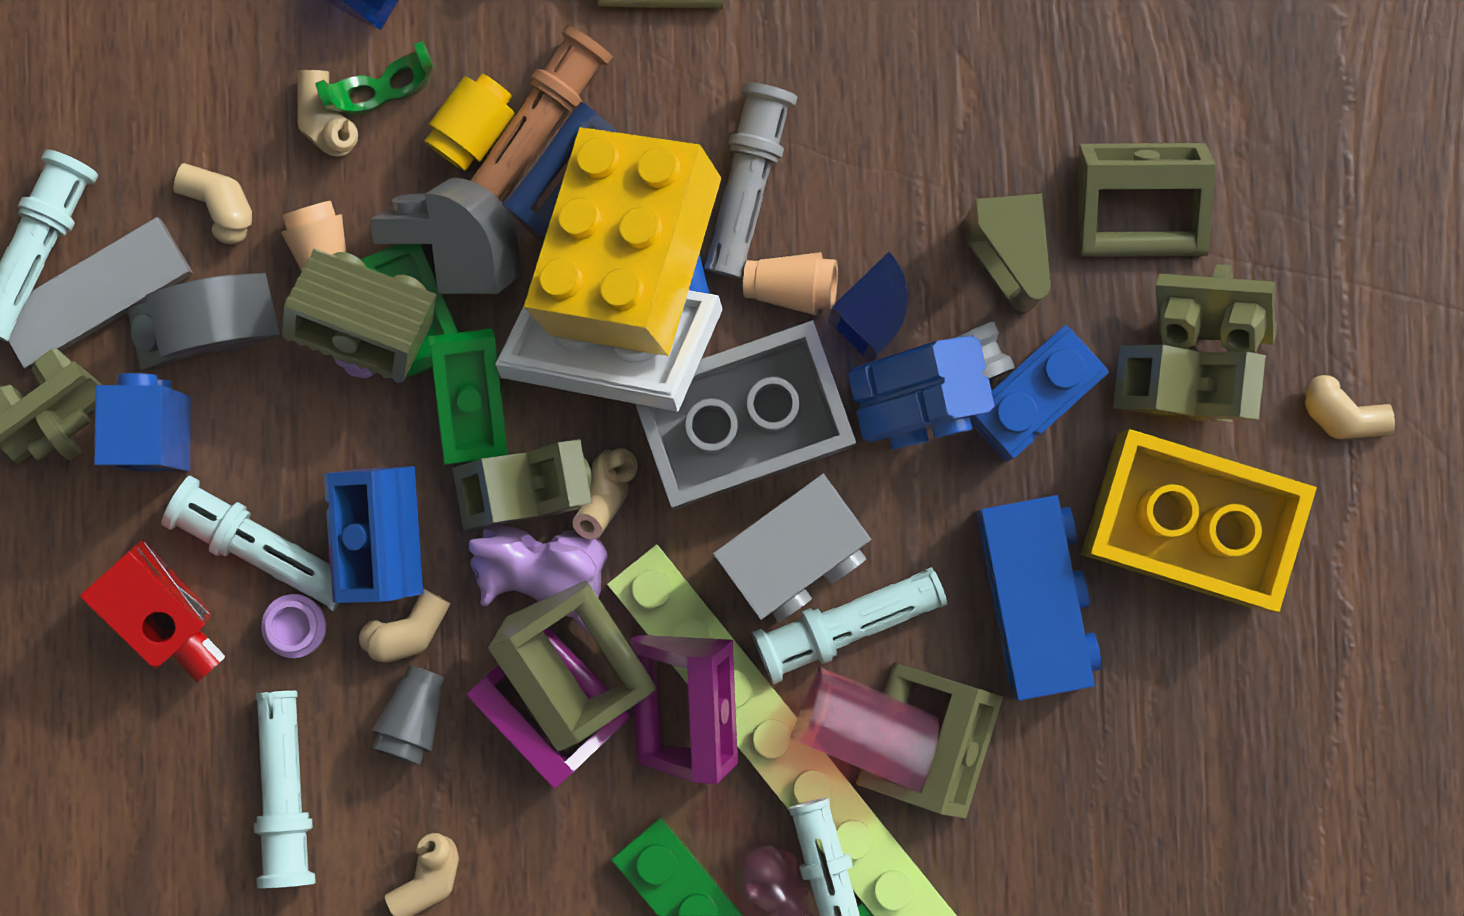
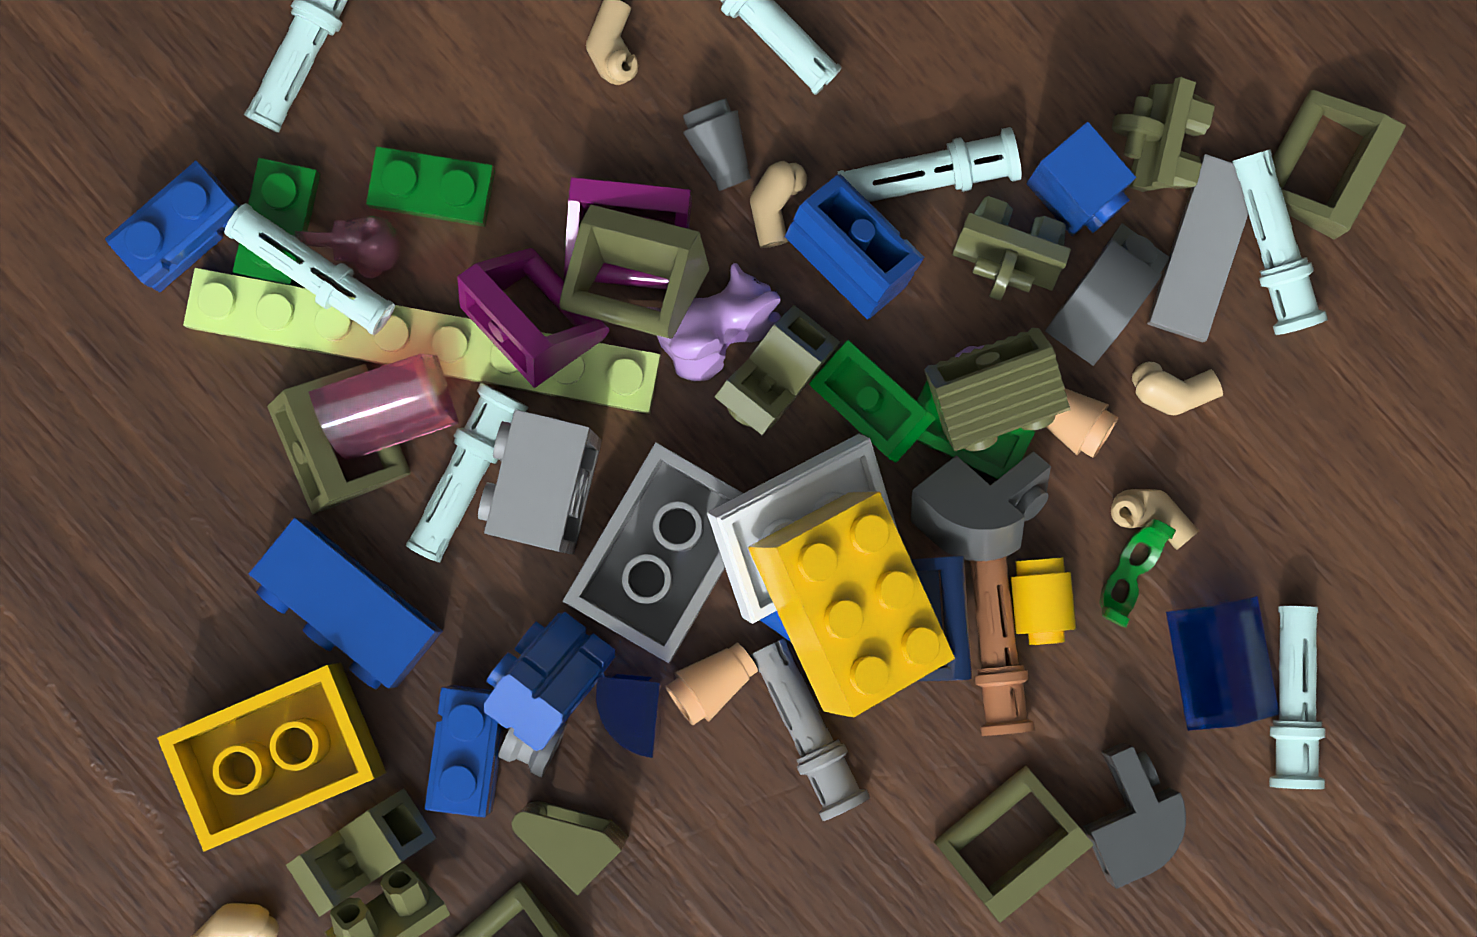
camera: 145 degrees right, 0 degrees up
(145, 585) = (984, 66): red torso -> none
(254, 420) = (1010, 254): none -> olive hips
(294, 626) = (856, 137): lavender plate -> none
(608, 491) = (722, 431): tan arm -> none

